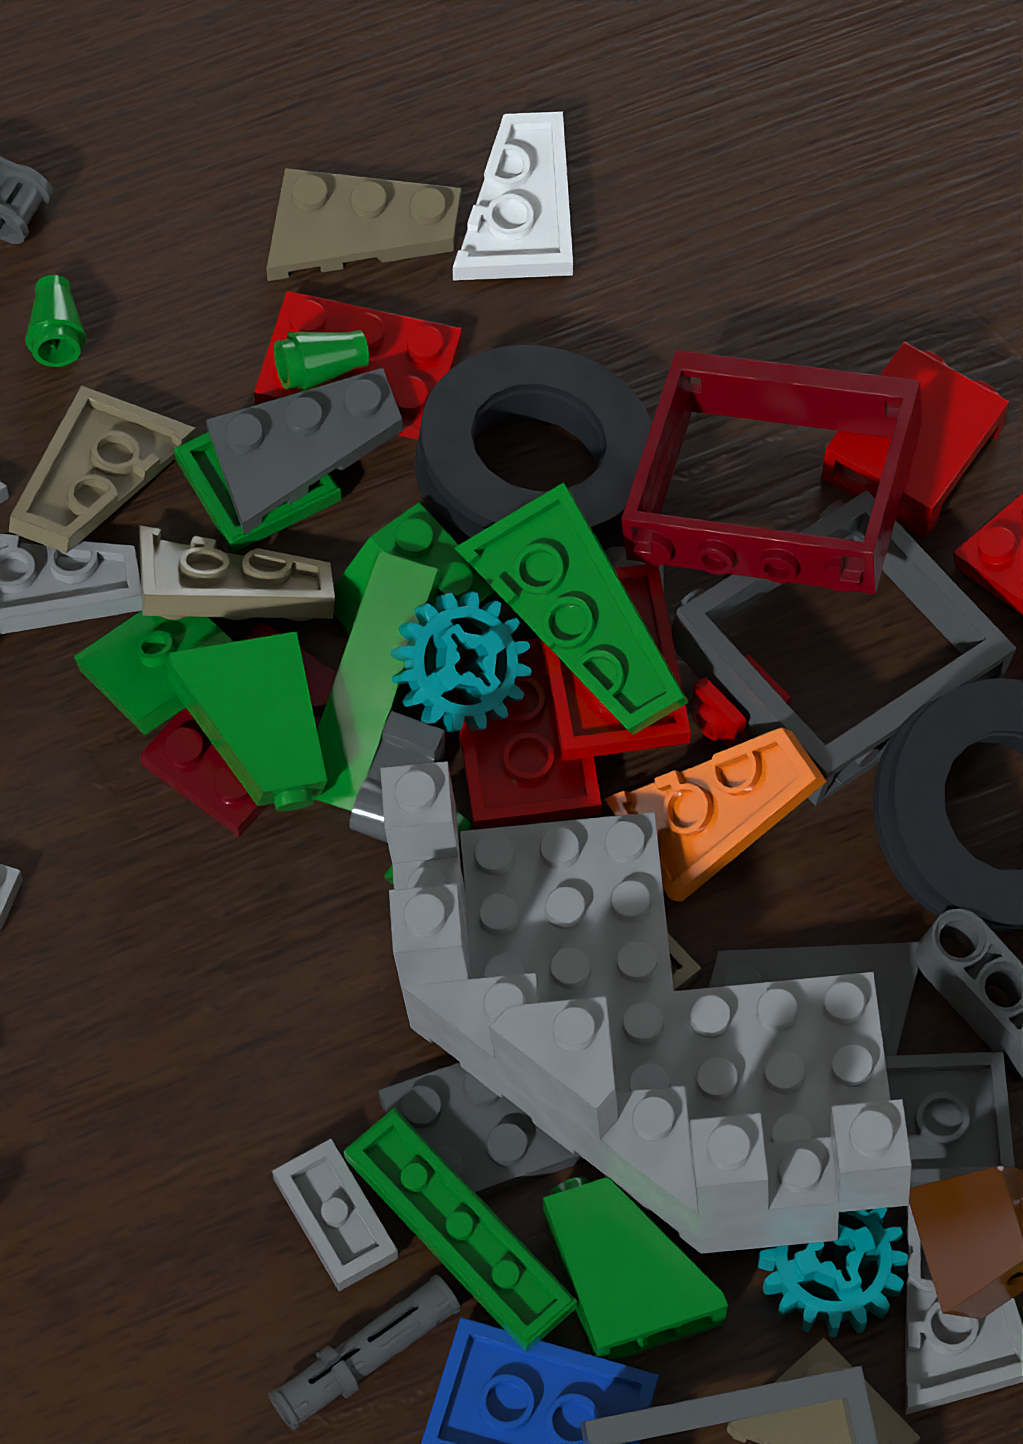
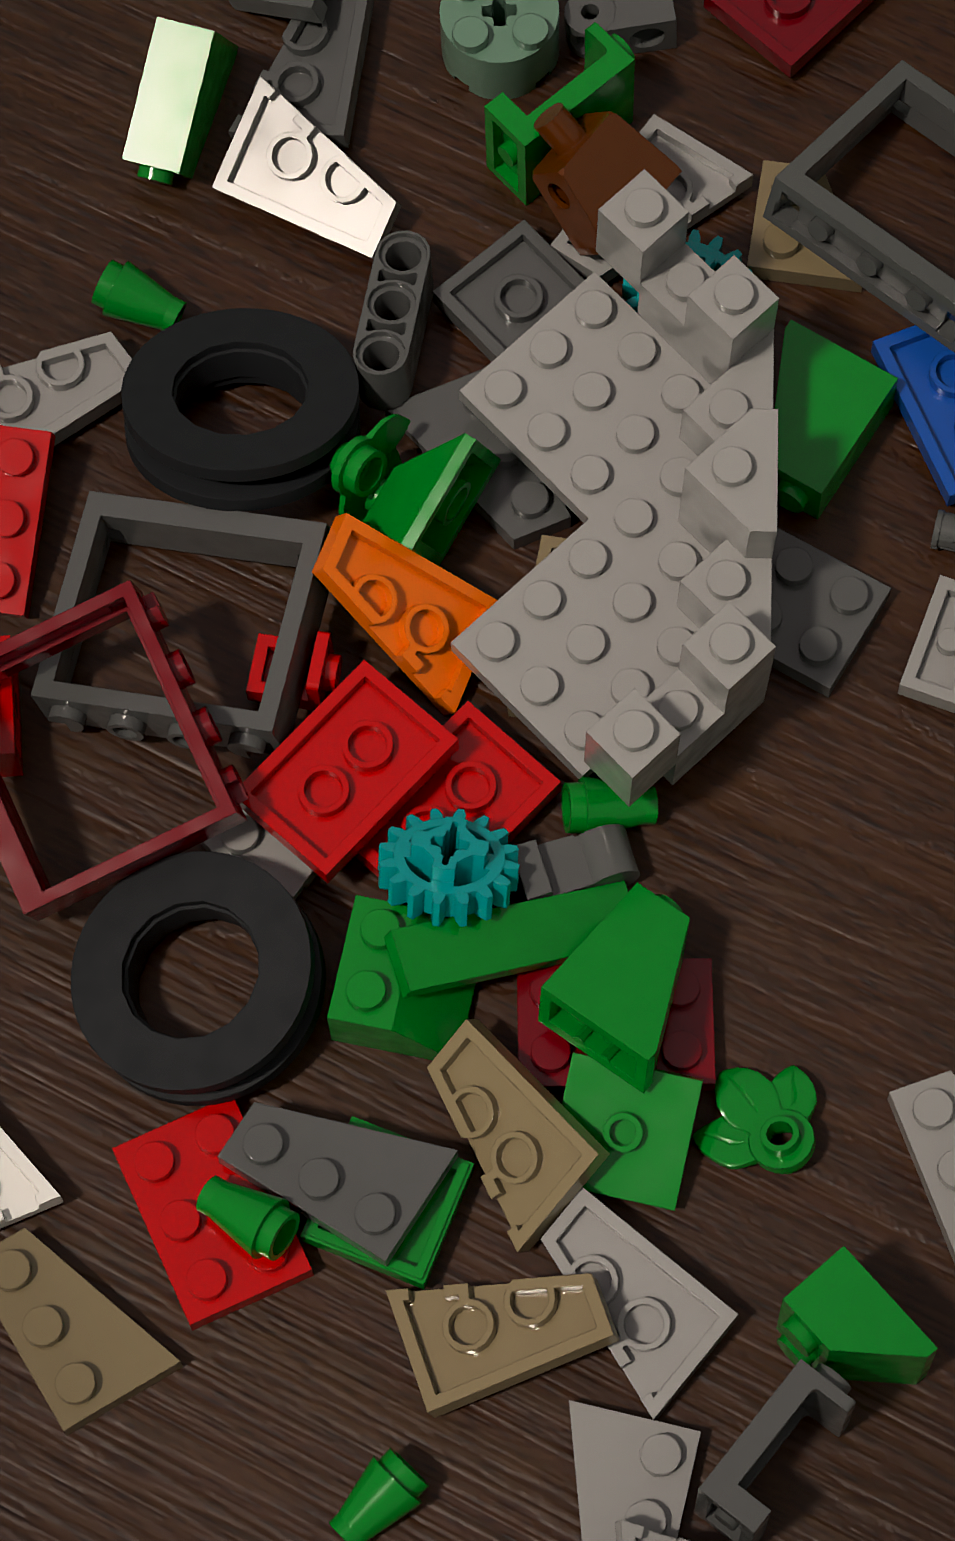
camera: 125 degrees left, 5 degrees up
(93, 772) = (754, 1114): none -> green plate
(460, 1230) = (890, 540): green tile -> none
(570, 595) = (328, 817): green wing -> none
(795, 885) = (432, 496): none -> green slope
(863, 851) = (363, 463): none -> green plate

